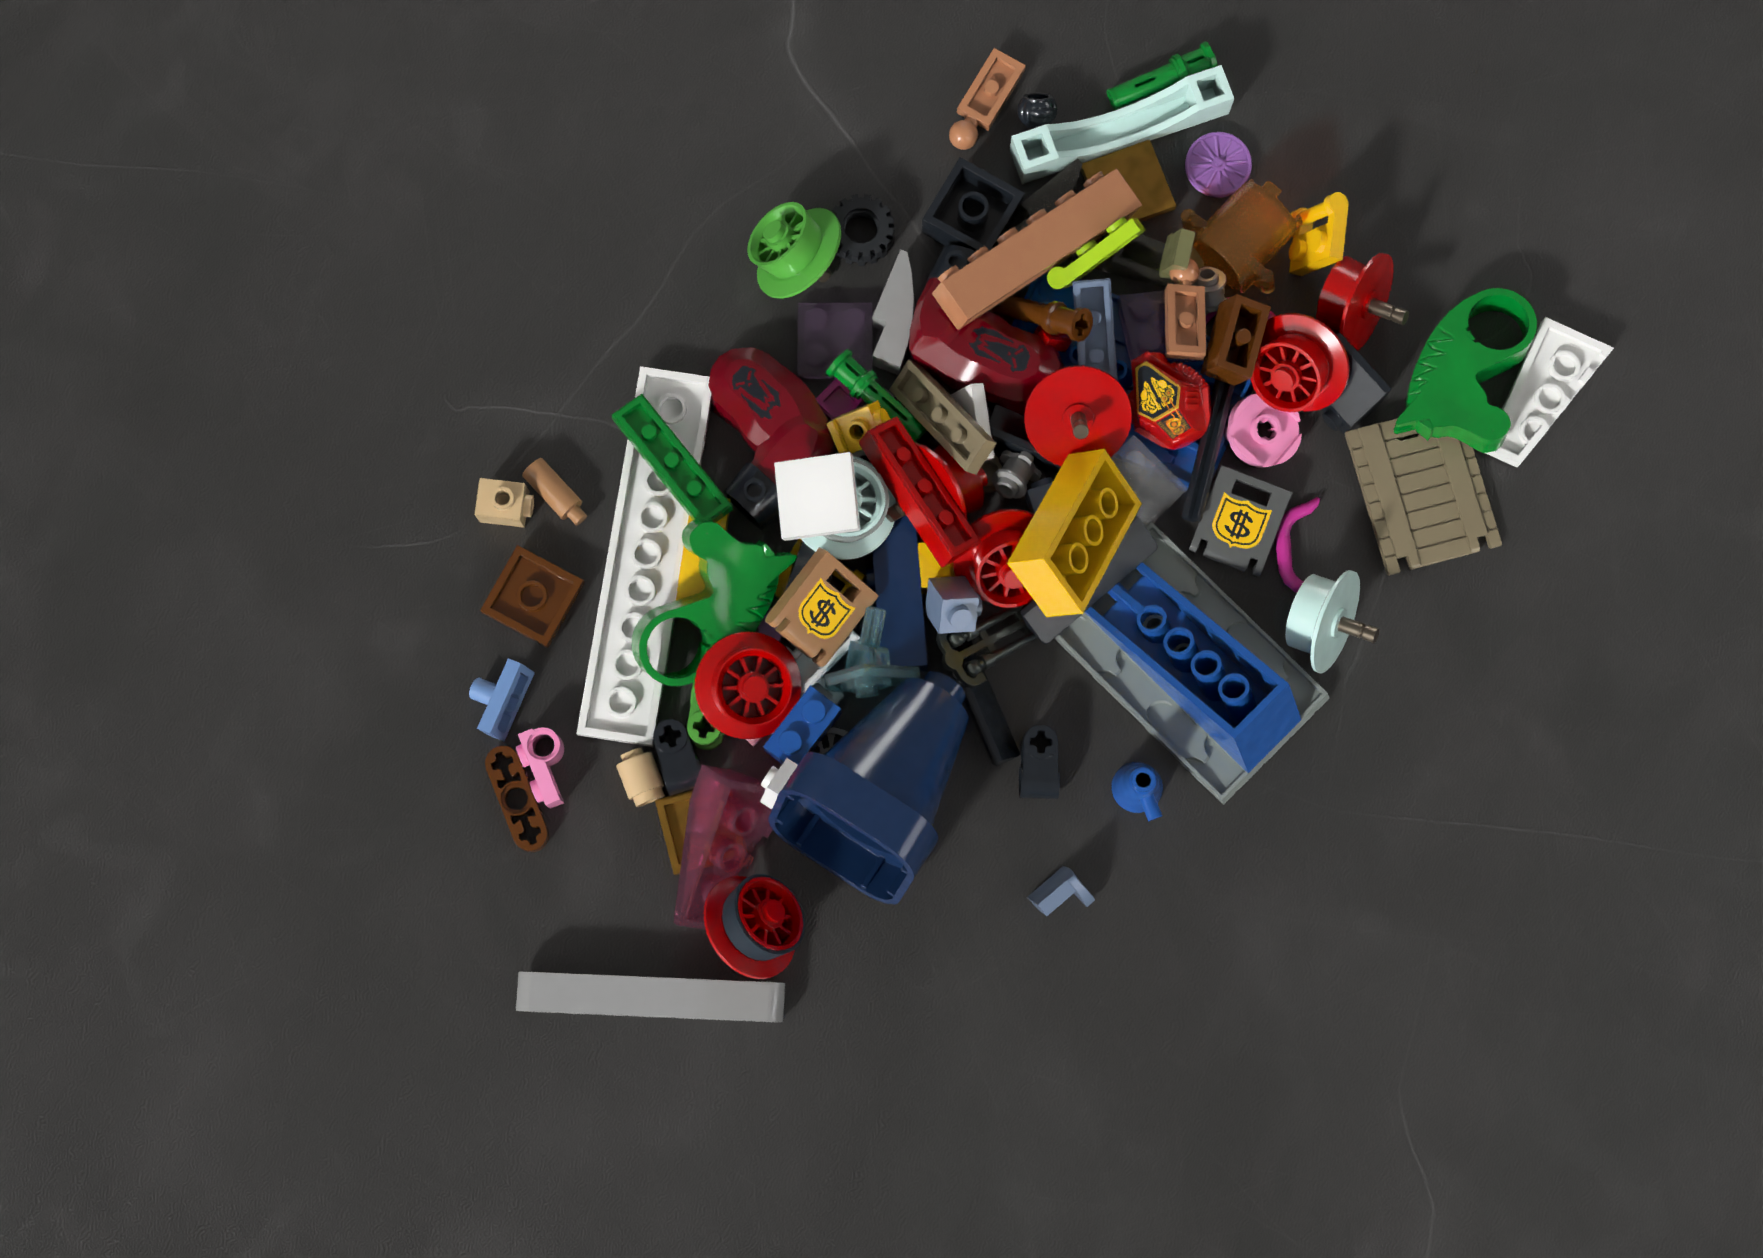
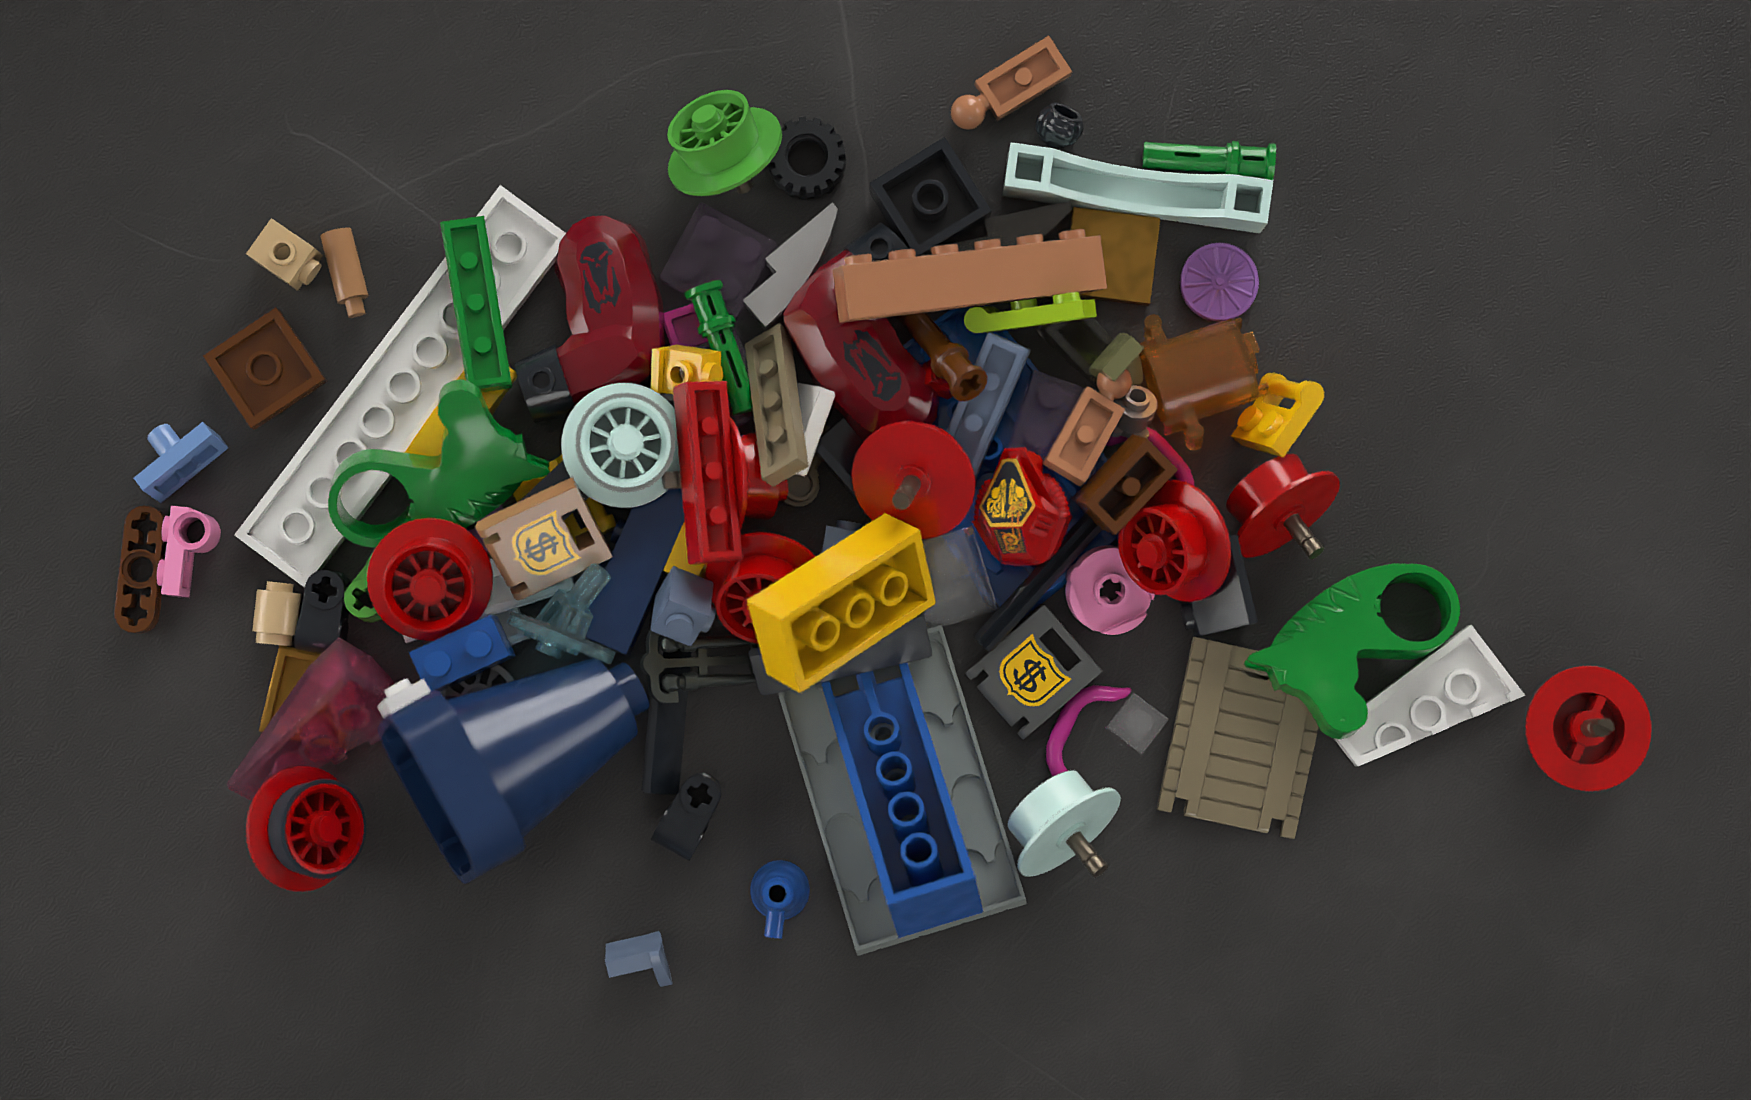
camera: 25 degrees right, 5 degrees up
(650, 997) = (167, 844): light grey beam -> none
(817, 496) = (593, 425): white tile -> none
(1015, 474) = (823, 502): light grey brick -> none
(1337, 520) = (1137, 723): none -> clear plate
(1675, 345) = (1588, 728): none -> red piece

